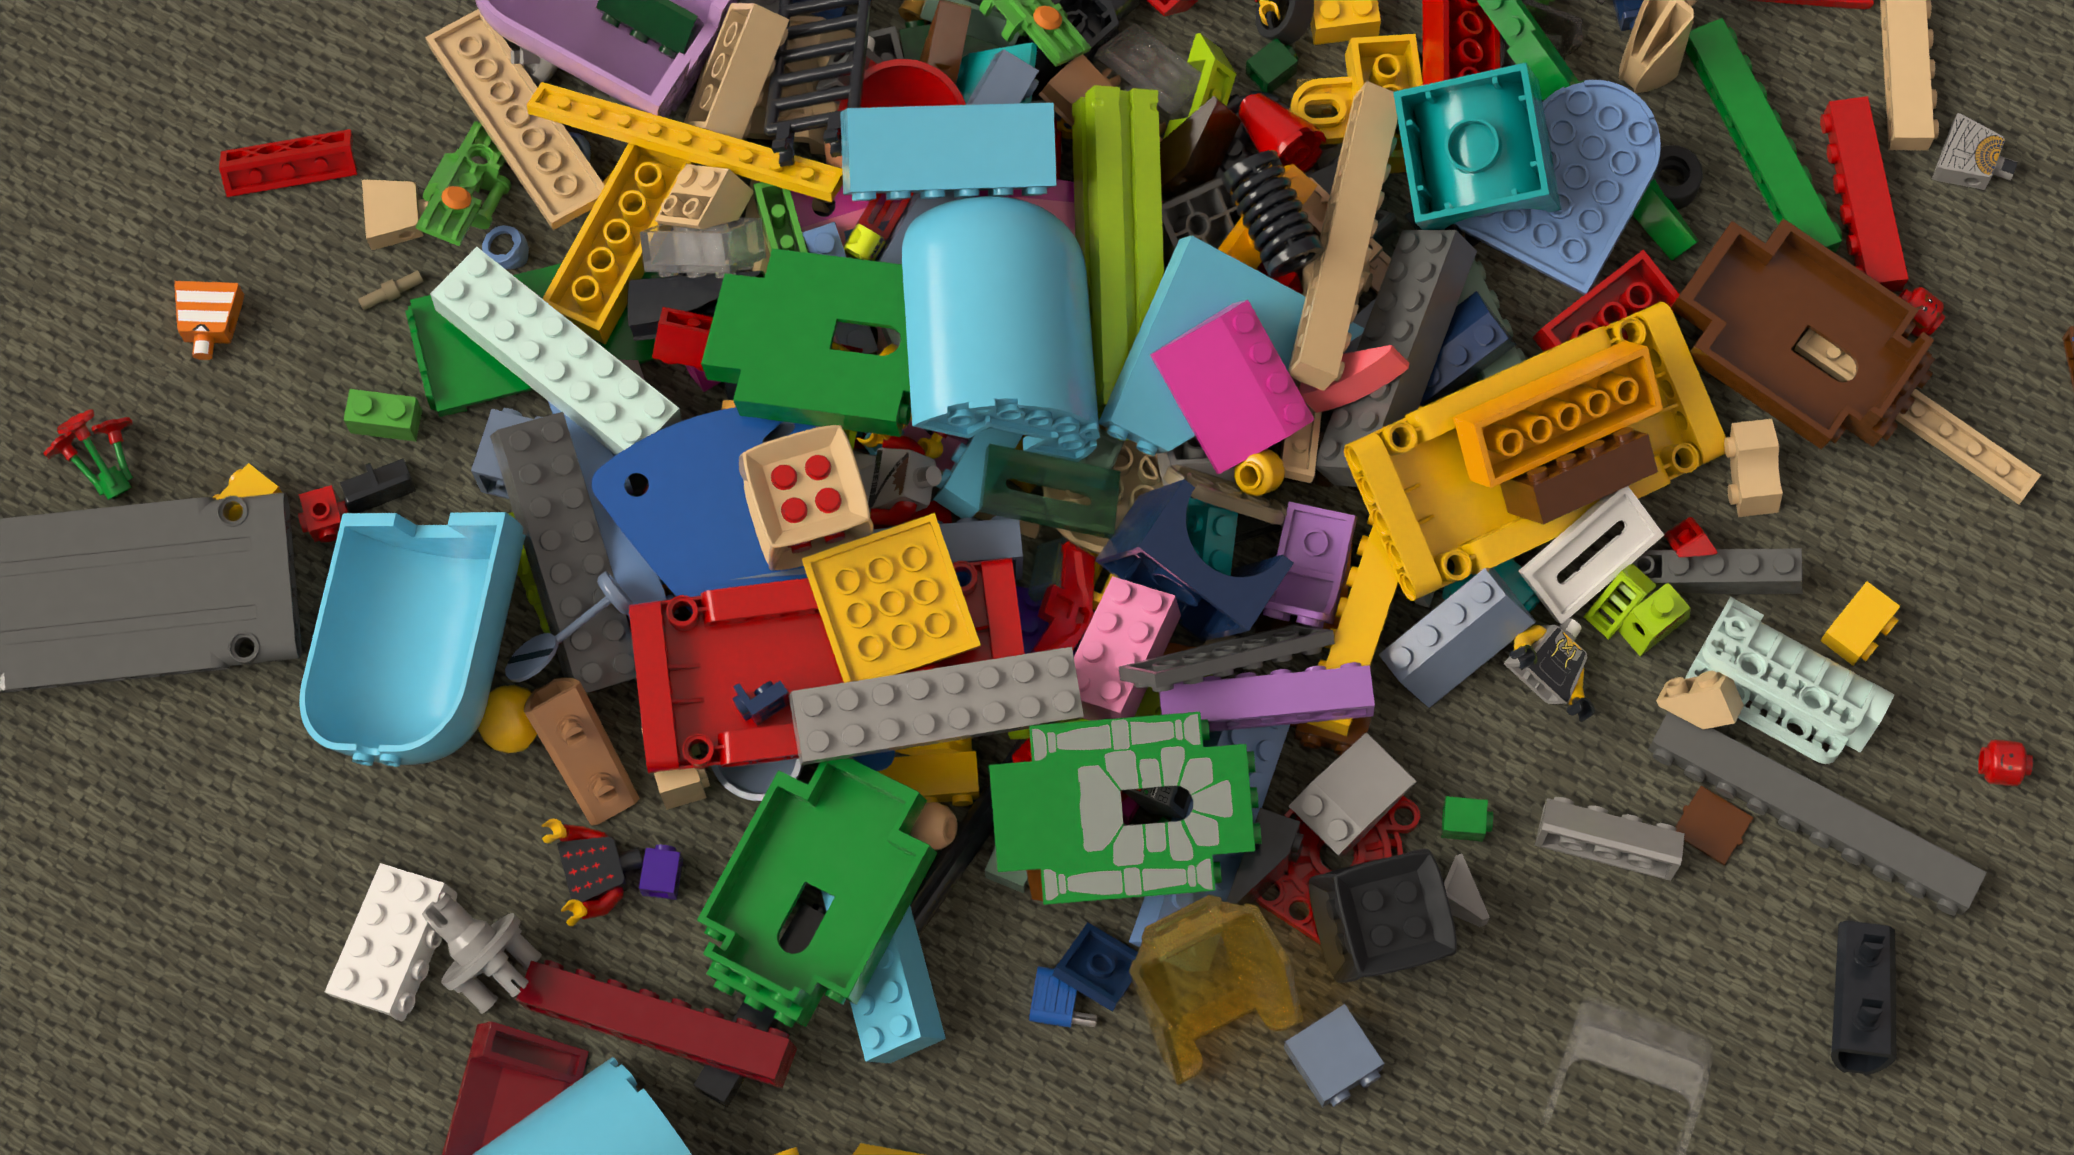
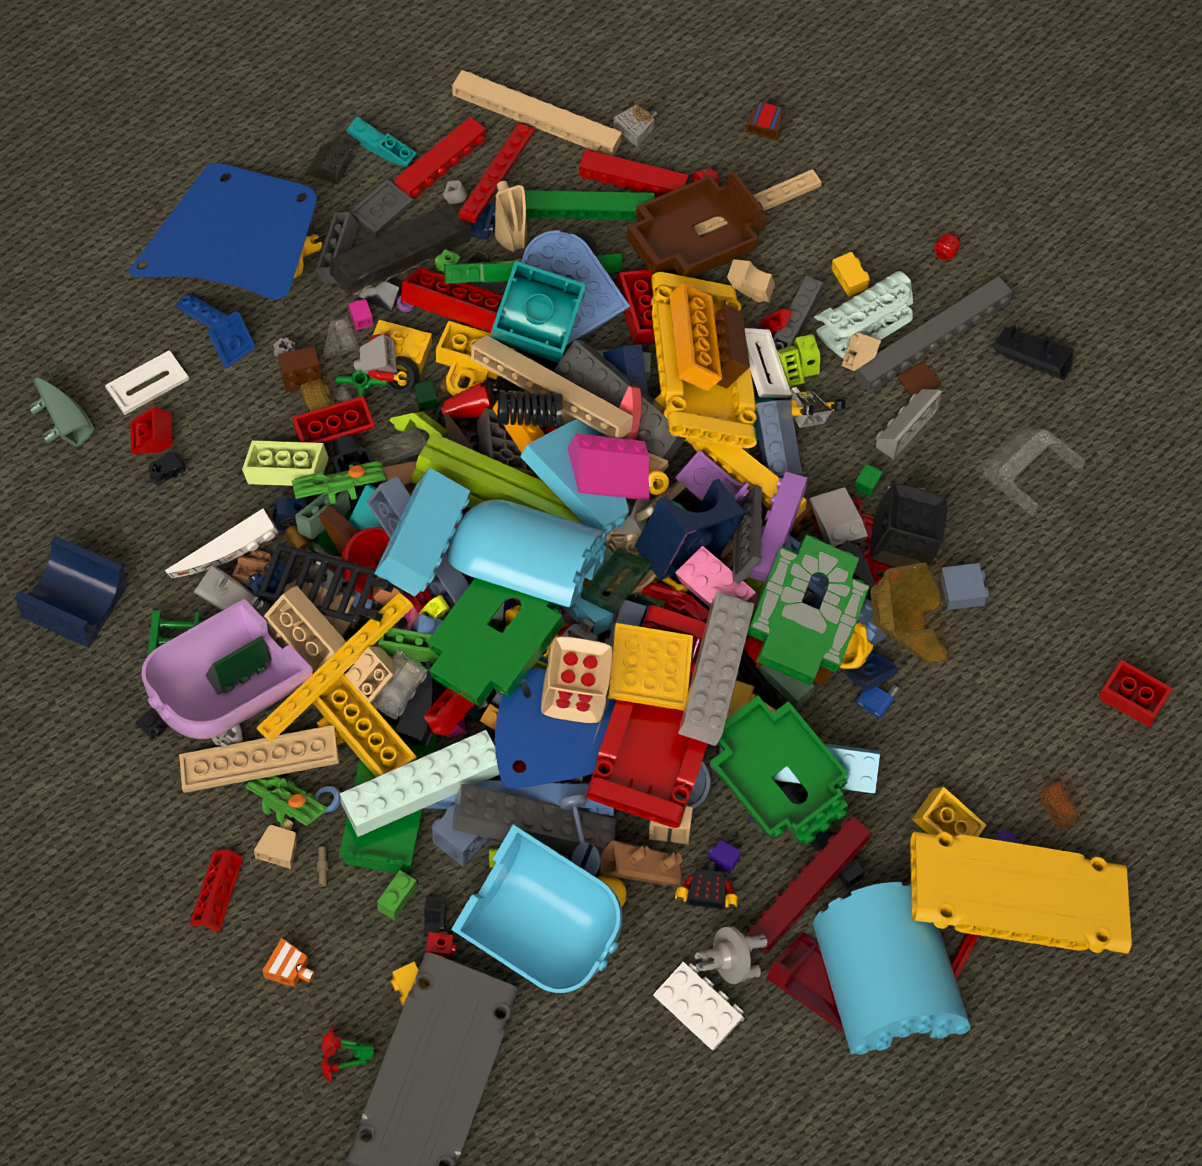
camera: 70 degrees left, 10 degrees down
(768, 701) = (671, 751): dark blue bracket -> none
(1115, 922) = (857, 649): none -> yellow hair

